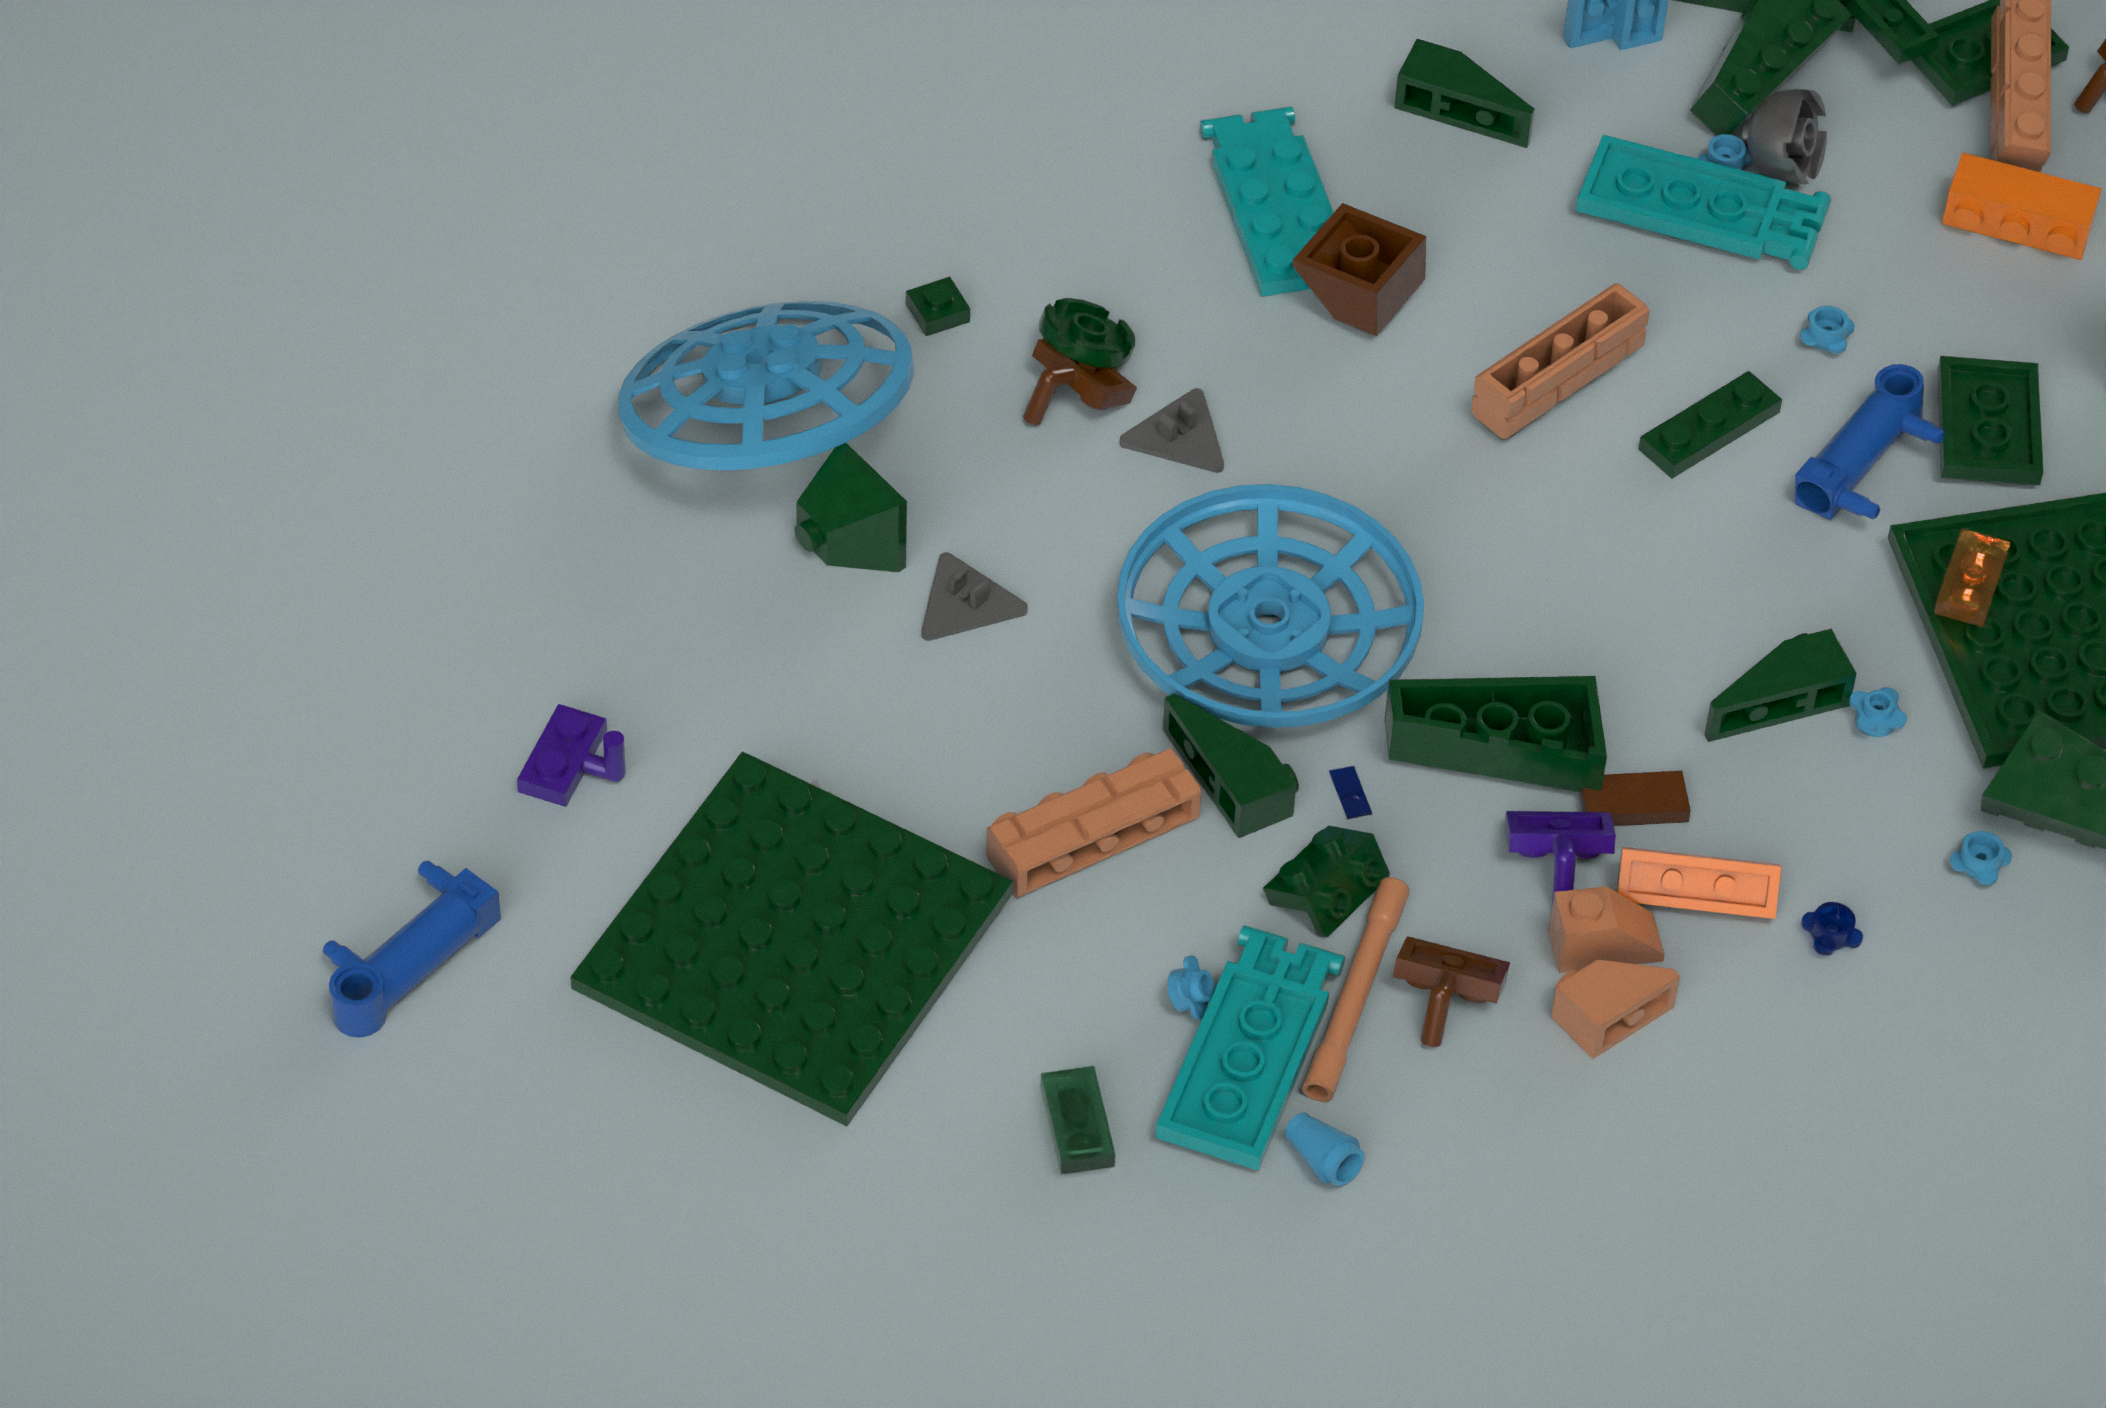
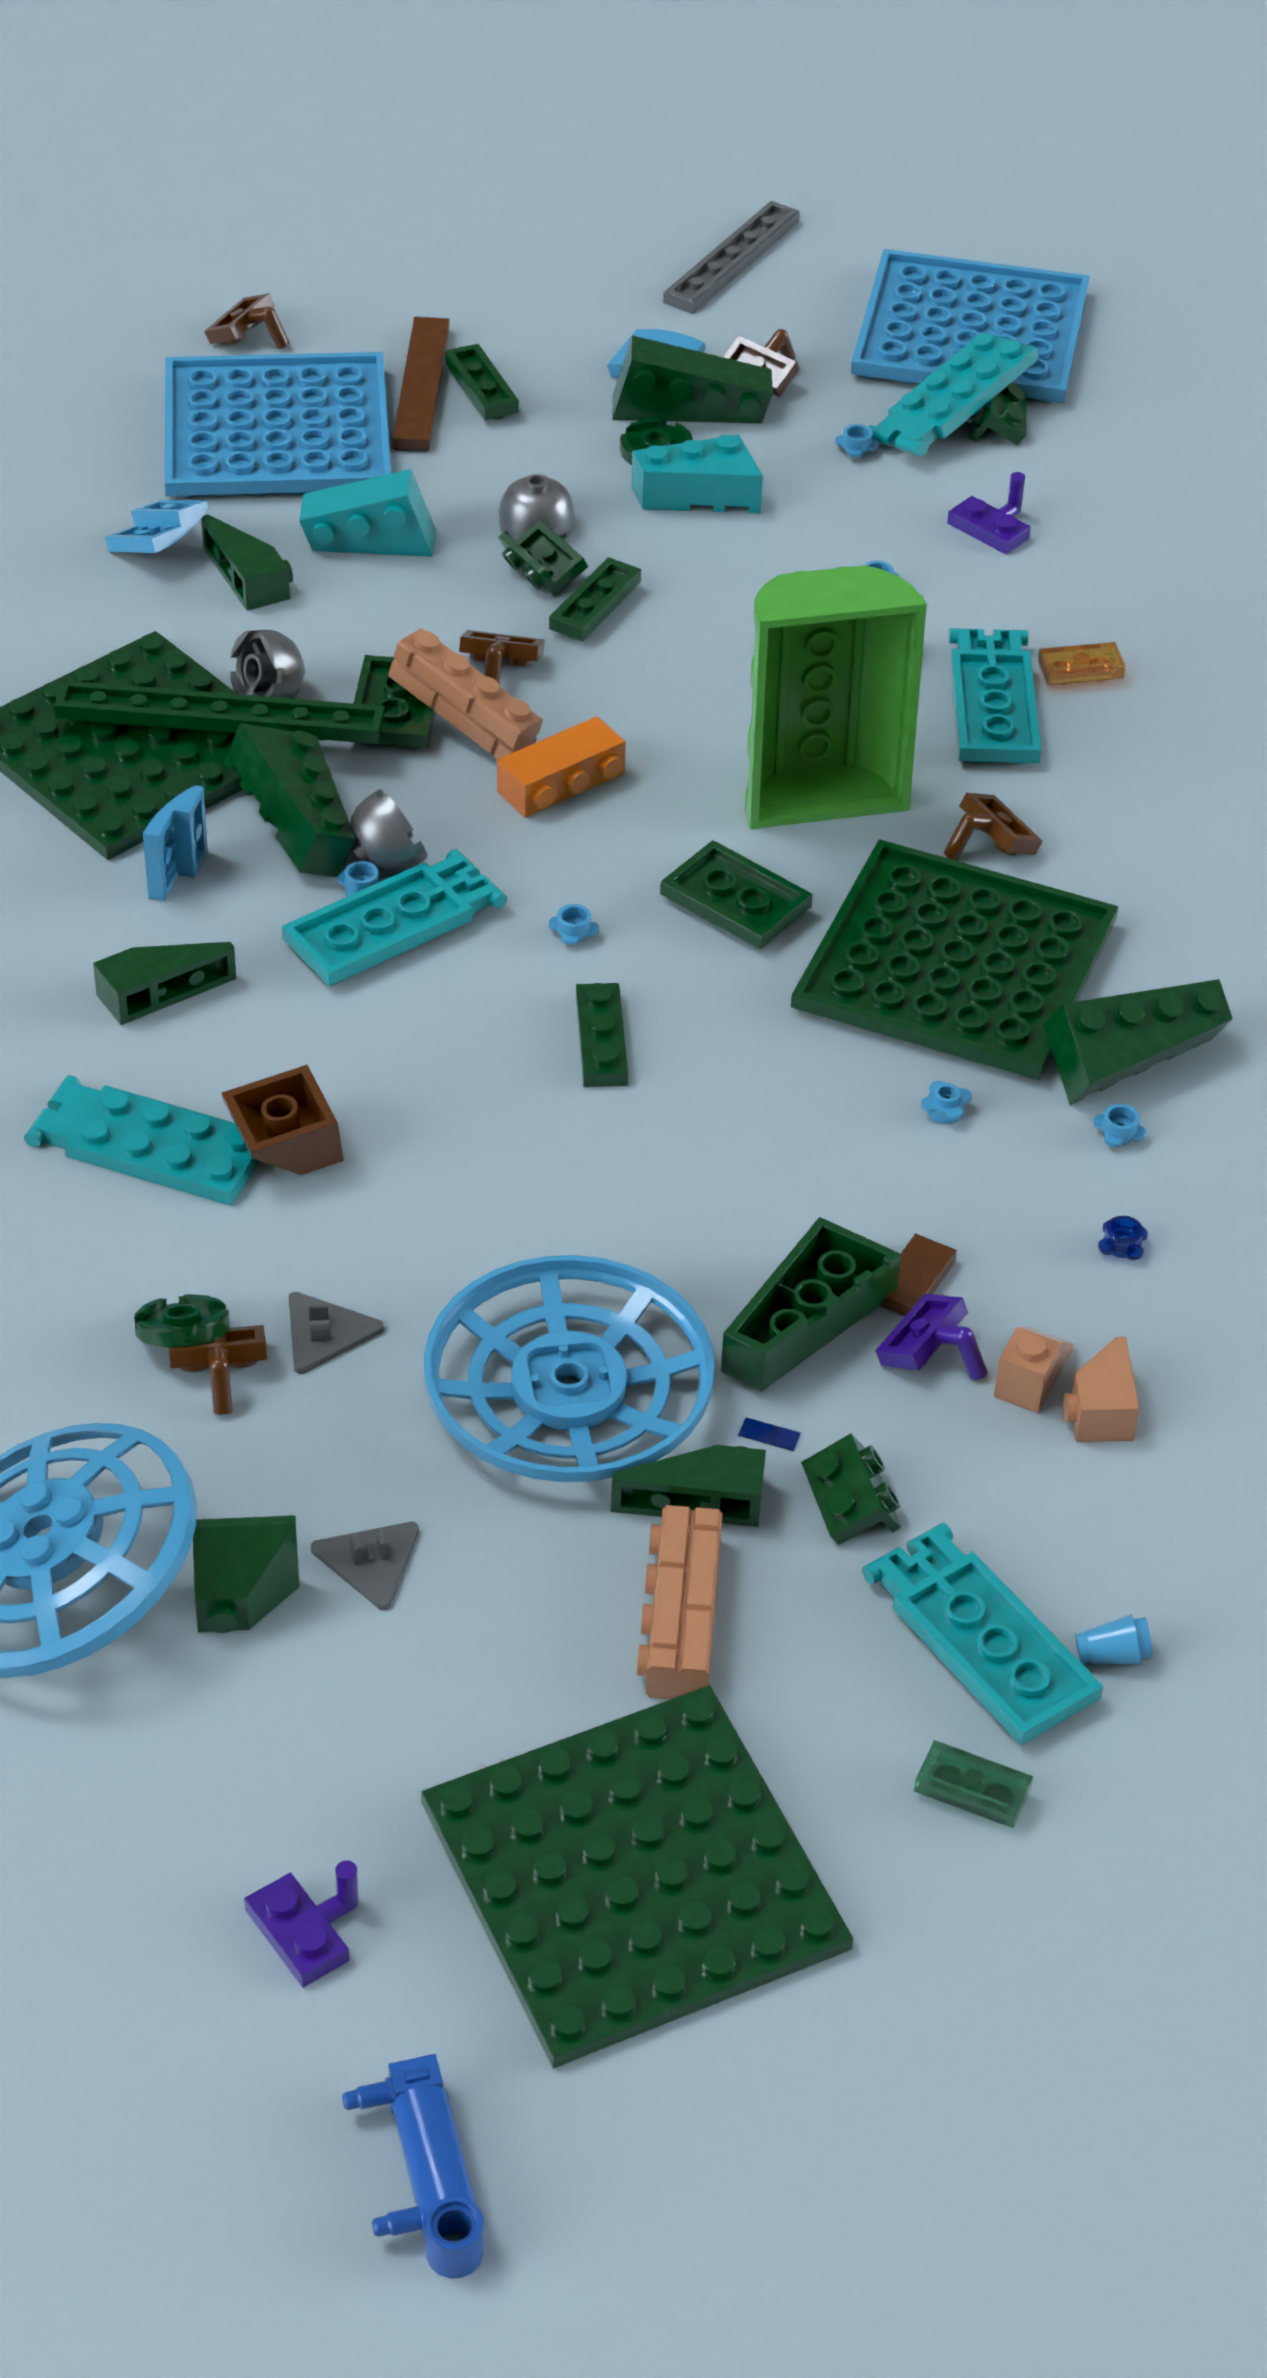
camera: 55 degrees left, 5 degrees down
(938, 306) = (49, 1400): dark green plate -> none
(1190, 988) = (899, 1634): dark azure plate -> none
(1331, 1054) = (918, 1484): nougat piece -> none
(1445, 972) = (1006, 1466): reddish brown plate -> none
(1560, 360) = (482, 1071): nougat brick -> none
(1699, 882) = (1030, 1283): orange plate -> none
(1788, 684) = (886, 1129): dark green slope -> none
(1891, 409) = (701, 967): blue piece -> none
(1972, 577) = (887, 977): clear orange plate -> none

